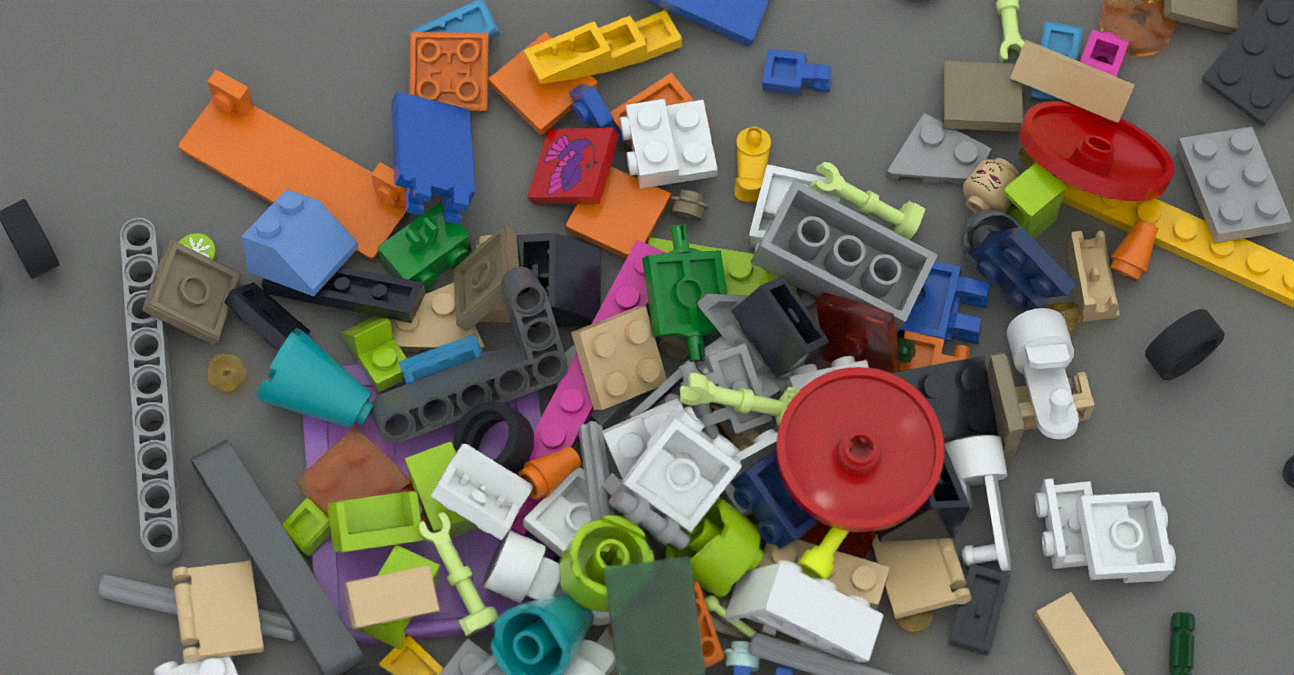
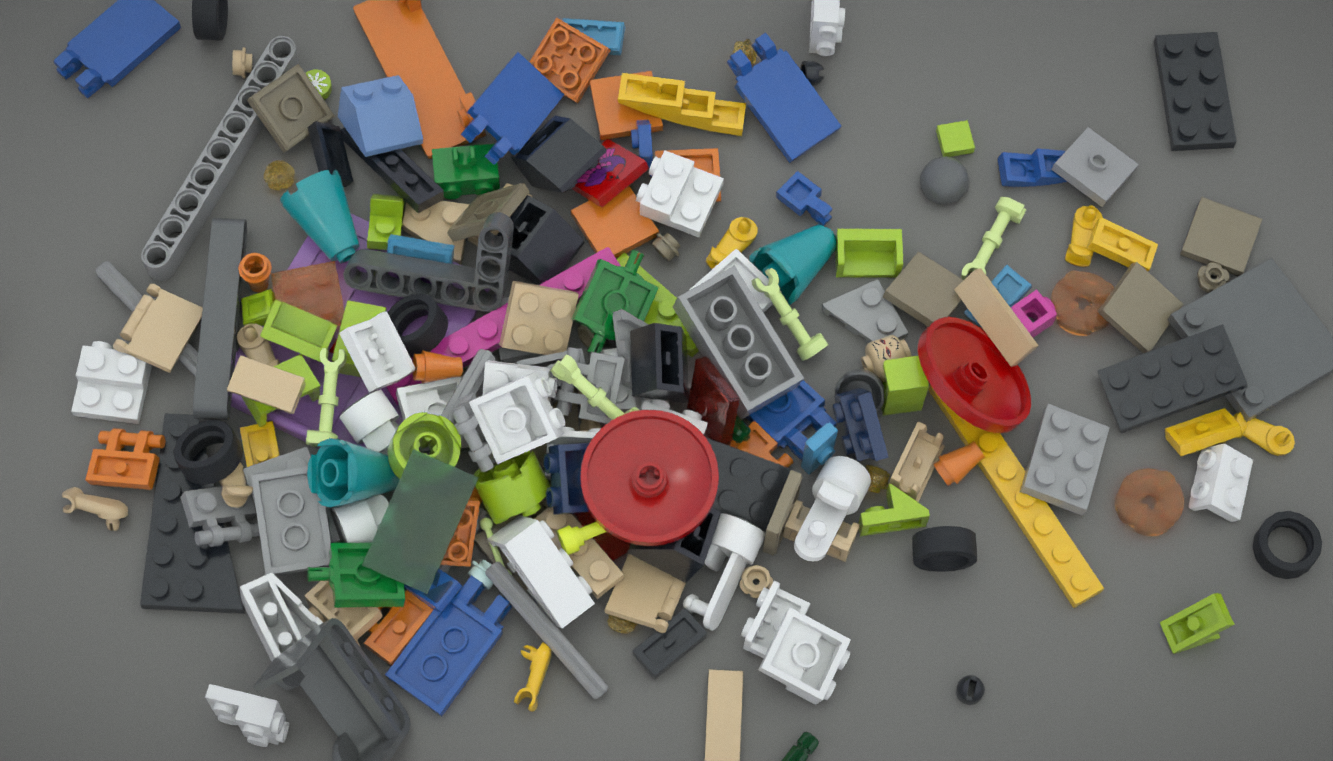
camera: 30 degrees right, 0 degrees up
(98, 275) = (241, 62): none -> tan plate
(280, 487) = (255, 271): none -> orange cone
(335, 567) = (256, 346): none -> tan piece
(516, 175) = (558, 155): none -> black slope
(833, 137) = (796, 259): none -> teal cone
(897, 91) = (869, 253): none -> lime panel
(995, 318) = (819, 448): none -> dark azure plate
(1021, 483) = (752, 573): none -> tan plate
(1111, 337) = (902, 514): none -> lime slope

